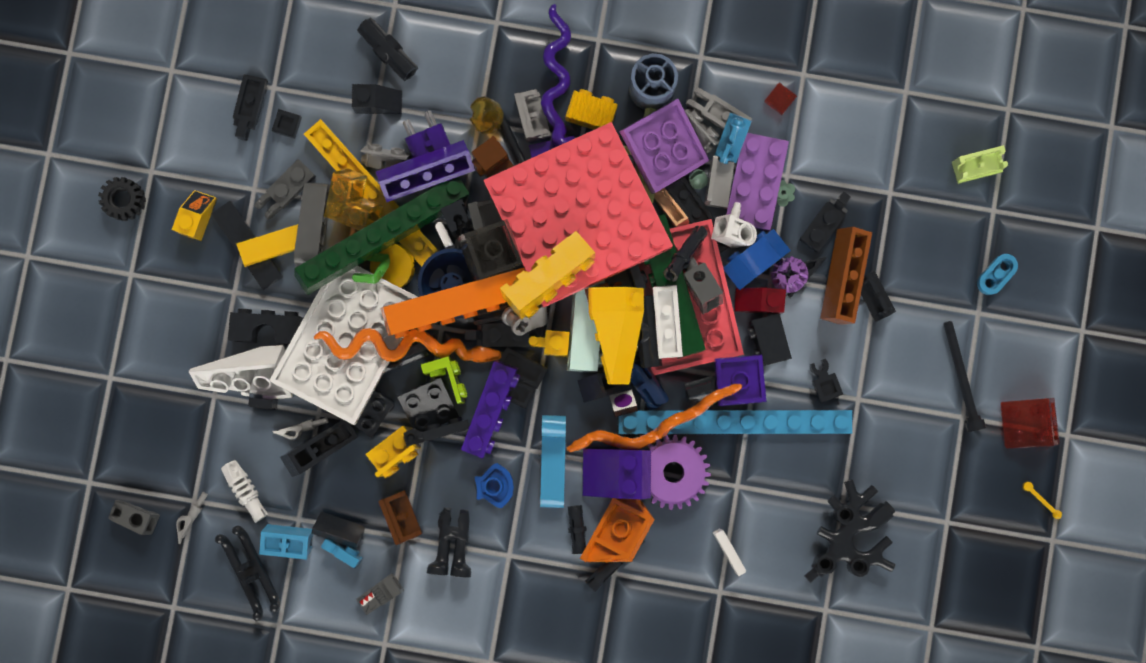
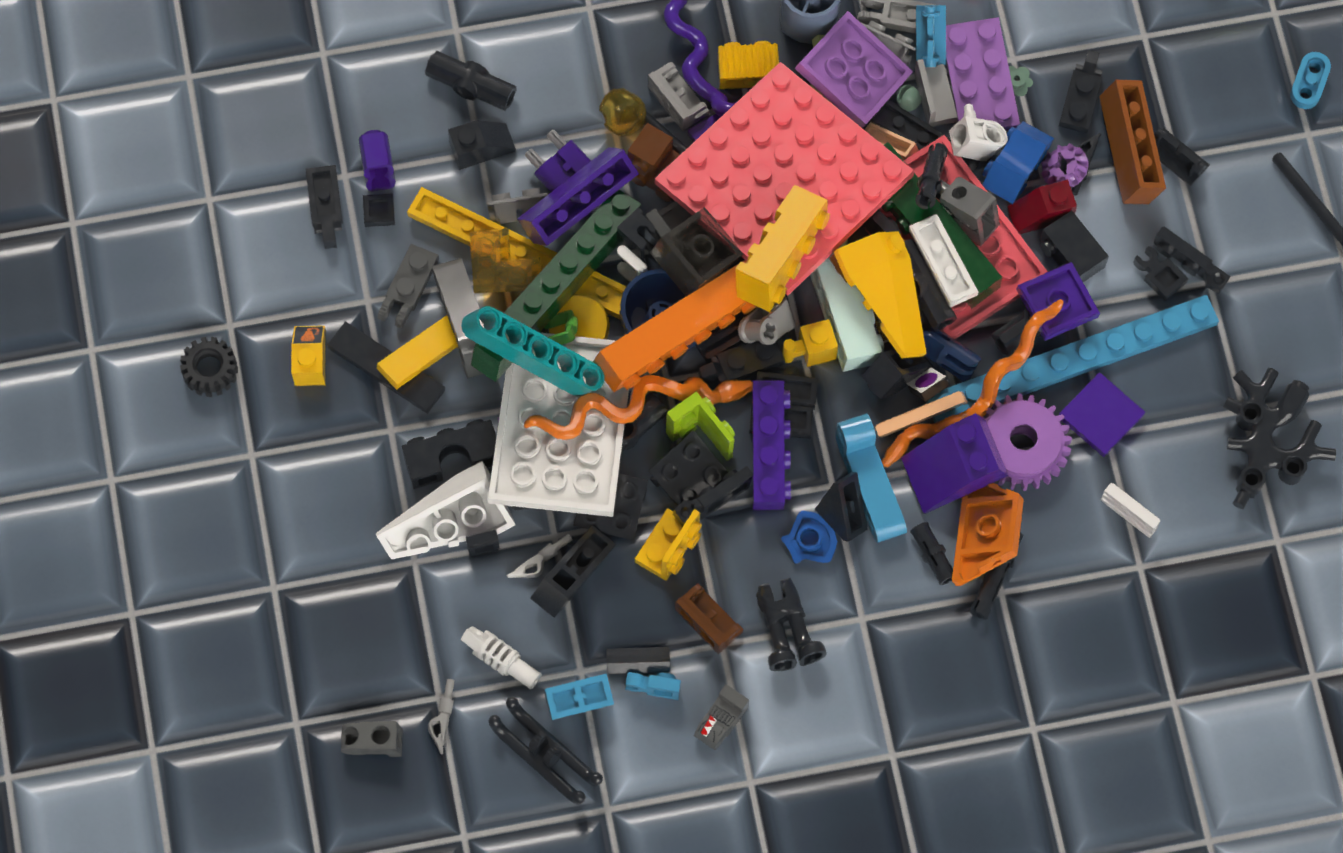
camera: 20 degrees left, 15 degrees down
(293, 88) = (377, 160): none -> dark purple brick
(326, 282) = (520, 353): none -> teal beam
(525, 476) = (844, 508): none -> black slope
(608, 427) = (921, 414): none -> light nougat tile
(739, 471) = (1102, 414): none -> dark purple tile
(851, 381) = (1192, 259): none -> black hinge

